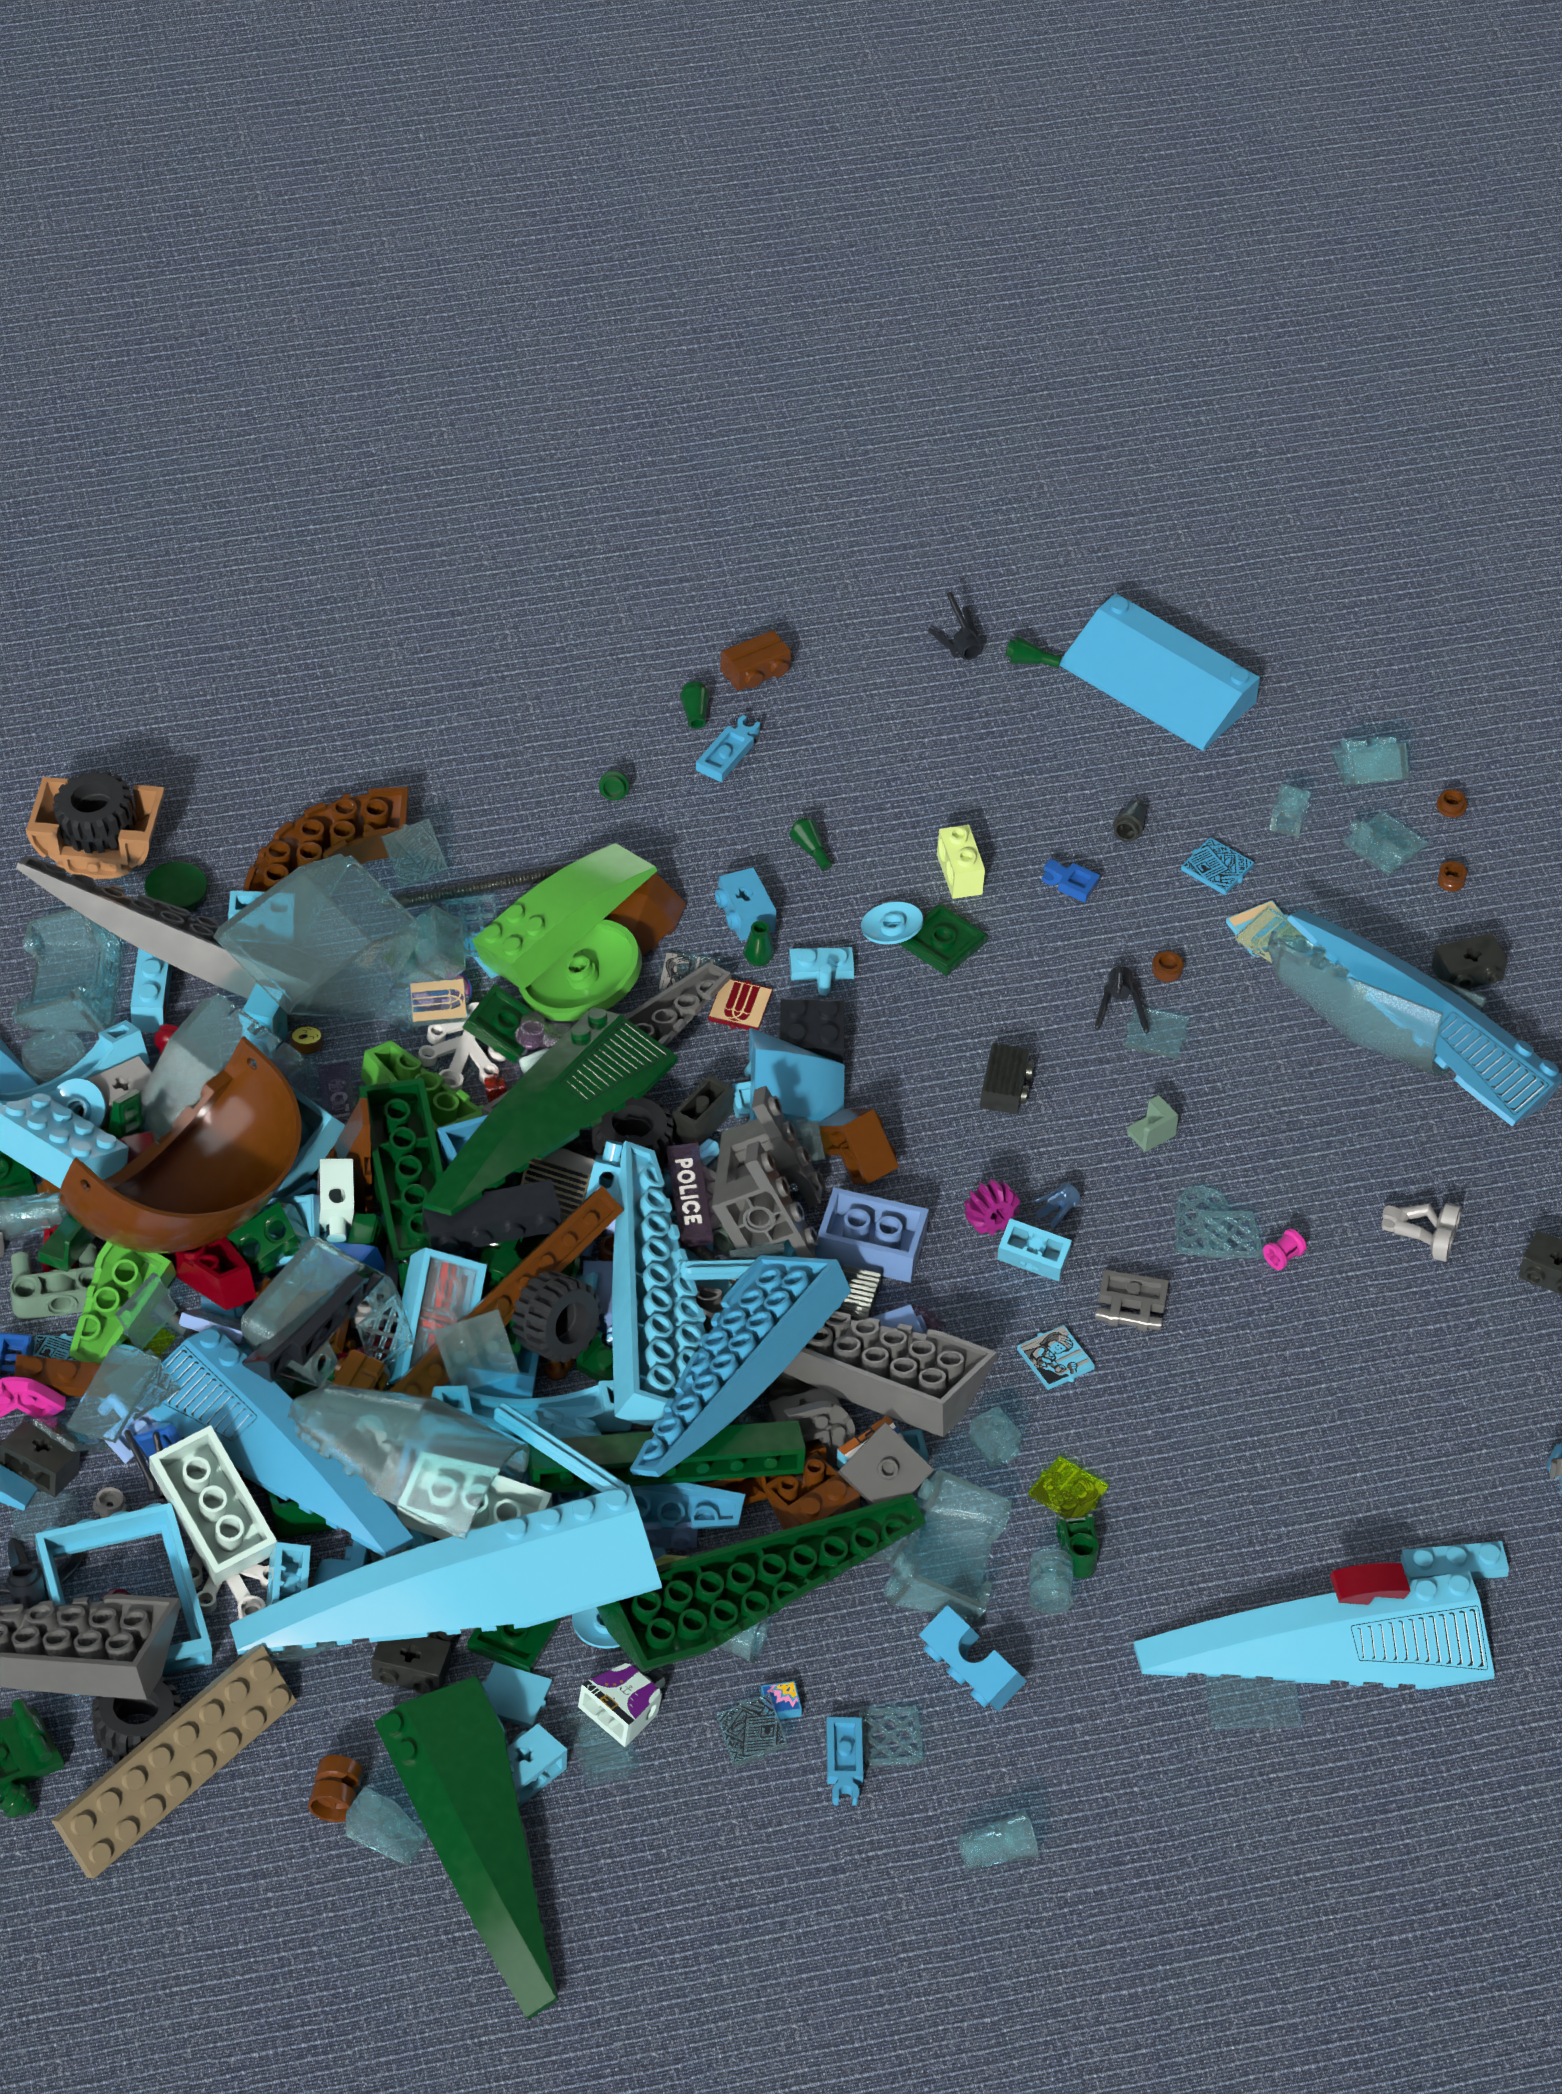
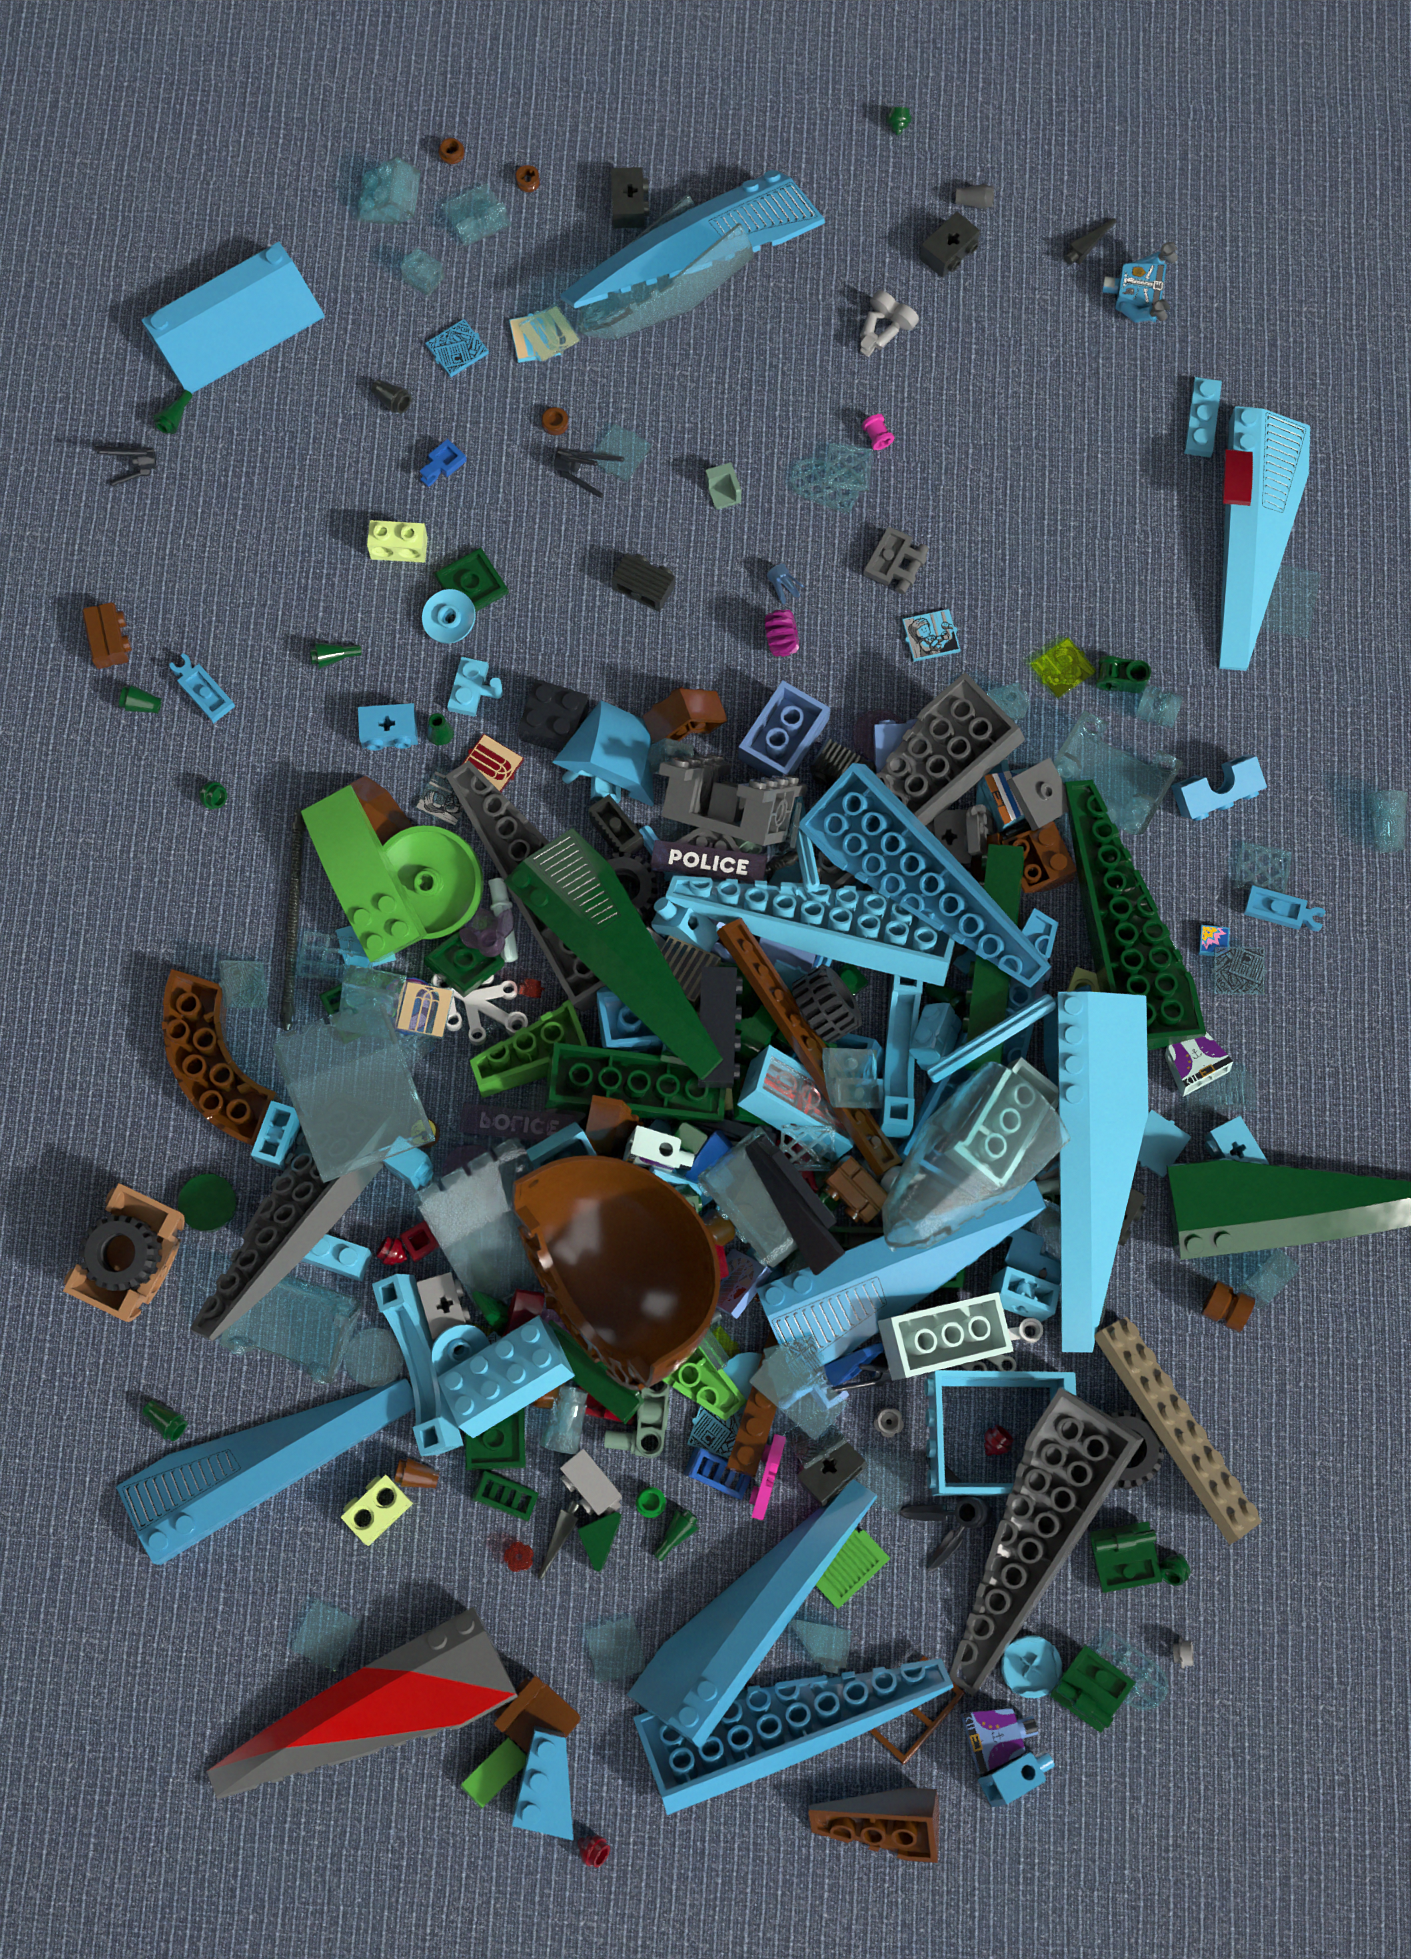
camera: 70 degrees left, 25 degrees up
(1034, 1249) = (834, 615): medium azure brick -> none

